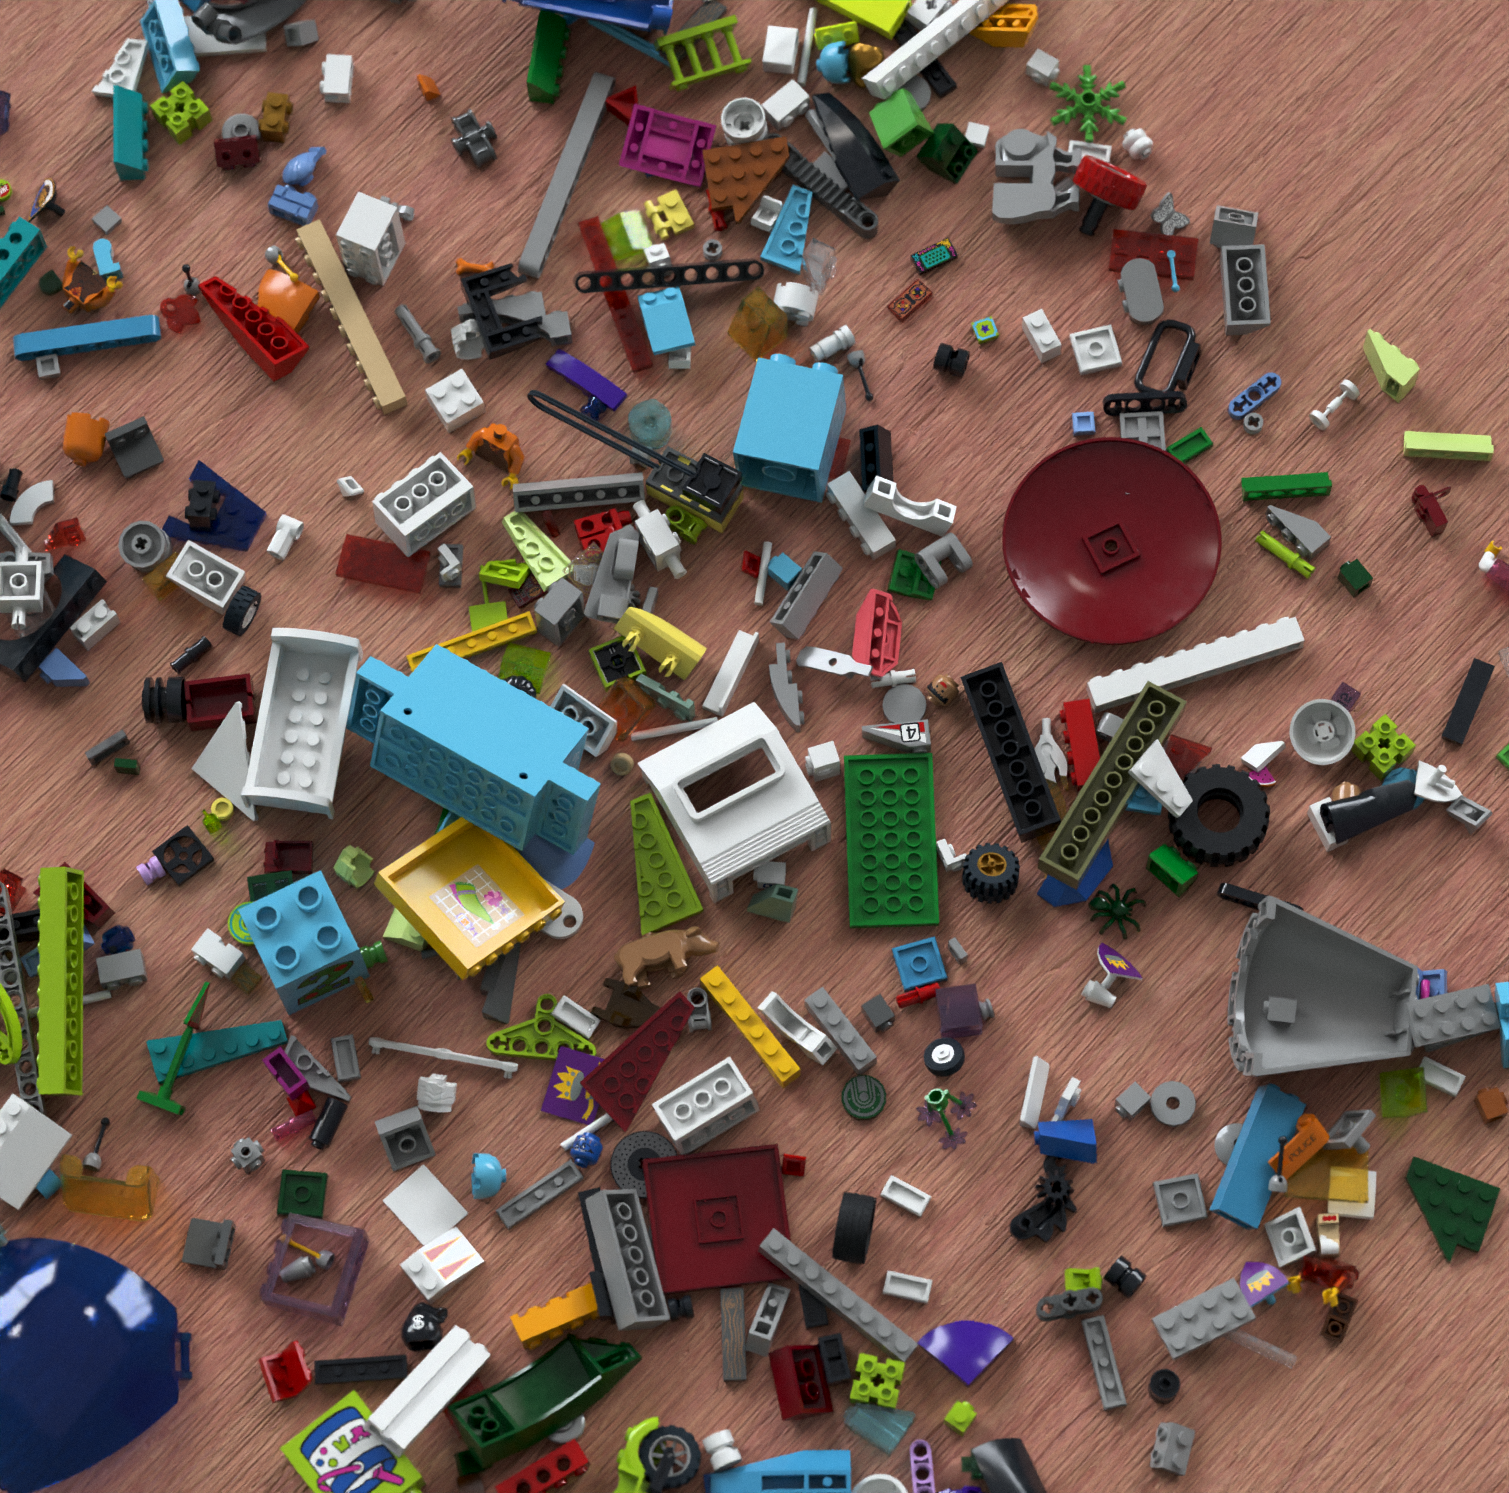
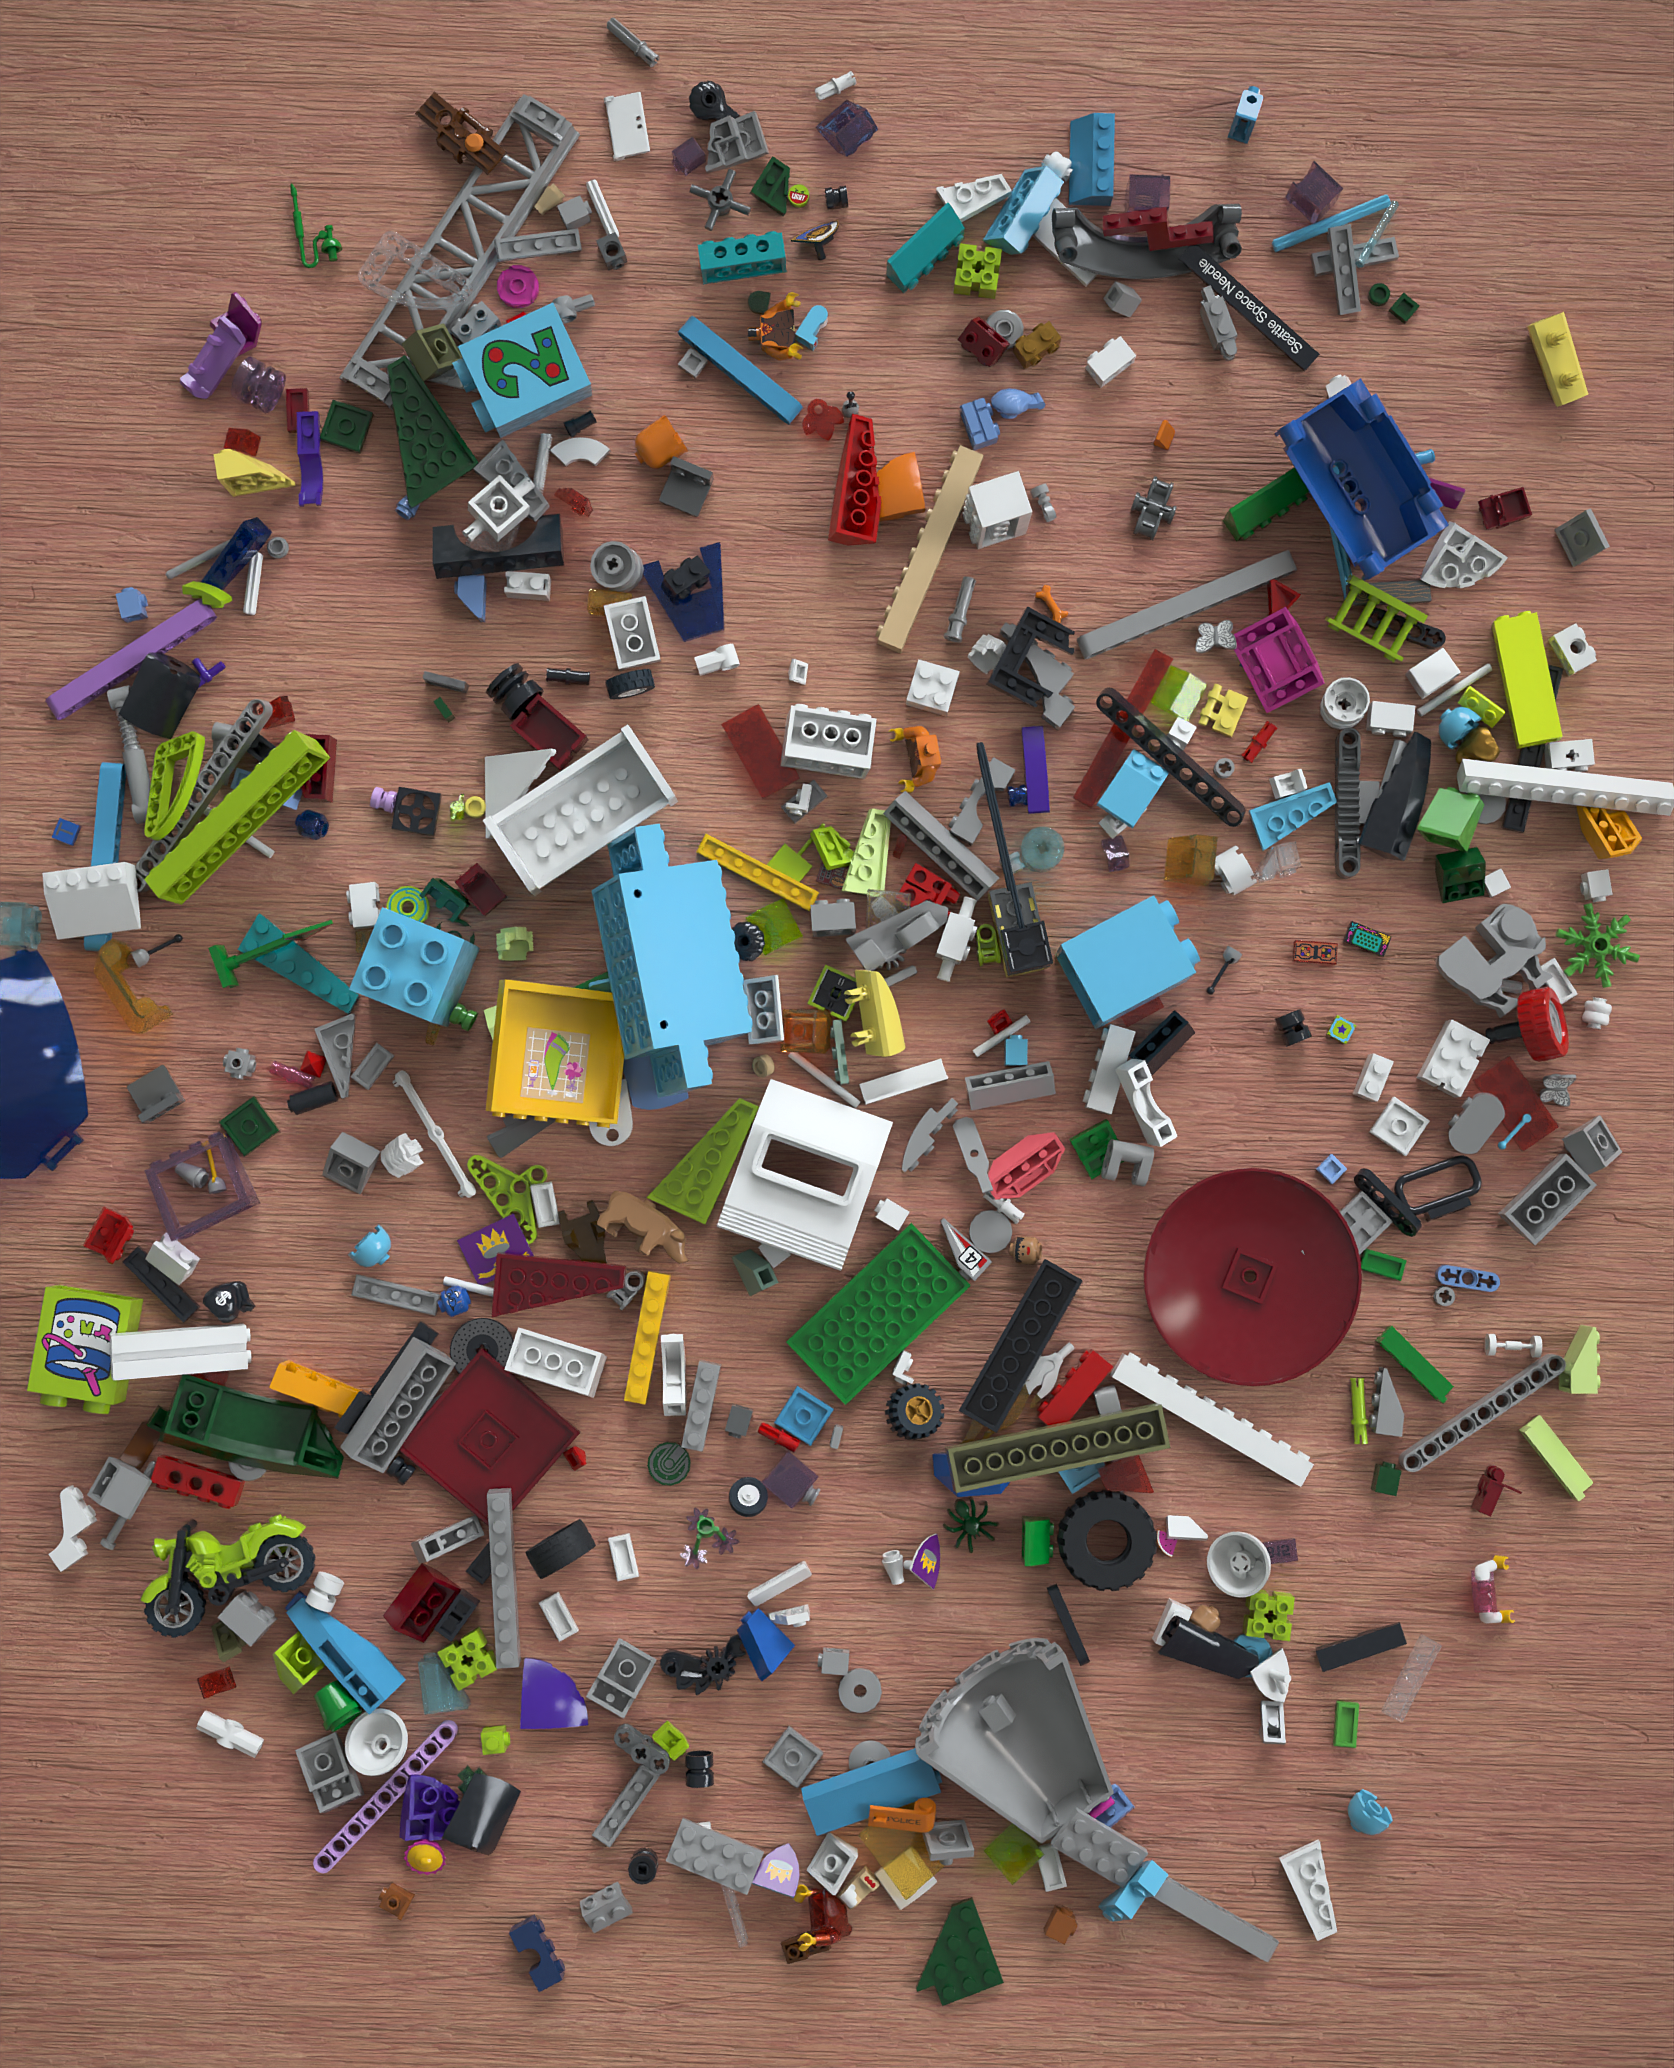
camera: 45 degrees right, 15 degrees up
(29, 164) = (836, 197): none -> black wheel
(107, 219) = (845, 296): light grey tile -> none
(121, 969) = (294, 847): light grey piece -> none
(275, 256) = (927, 448): hinge -> none
(286, 1073) = (320, 1031): magenta piece -> none
(349, 1339) = (172, 1259): none -> white brick
(425, 1206) = (317, 1220): white sticker -> none
(441, 1264) = (284, 1272): white slope -> none
(580, 460) = (968, 825): none -> light grey arch
(610, 173) = (1215, 636): none -> light grey animal
(704, 376) = (1116, 853): none -> bracket
(733, 1334) = (416, 1523): dark grey tile -> none
(743, 172) = (1303, 738): dark orange wing -> none
(754, 36) = (1422, 627): none -> black beam
(832, 344) = (1226, 926): white axle -> none
(999, 1278) = (621, 1678): none -> light grey slope
(1079, 268) = (1453, 1058): none -> white piece
(1161, 780) = (1091, 1482): white wing -> none
(1278, 1182) = (862, 1825): hinge -> none
(1369, 459) = (1492, 1412): none -> light grey beam

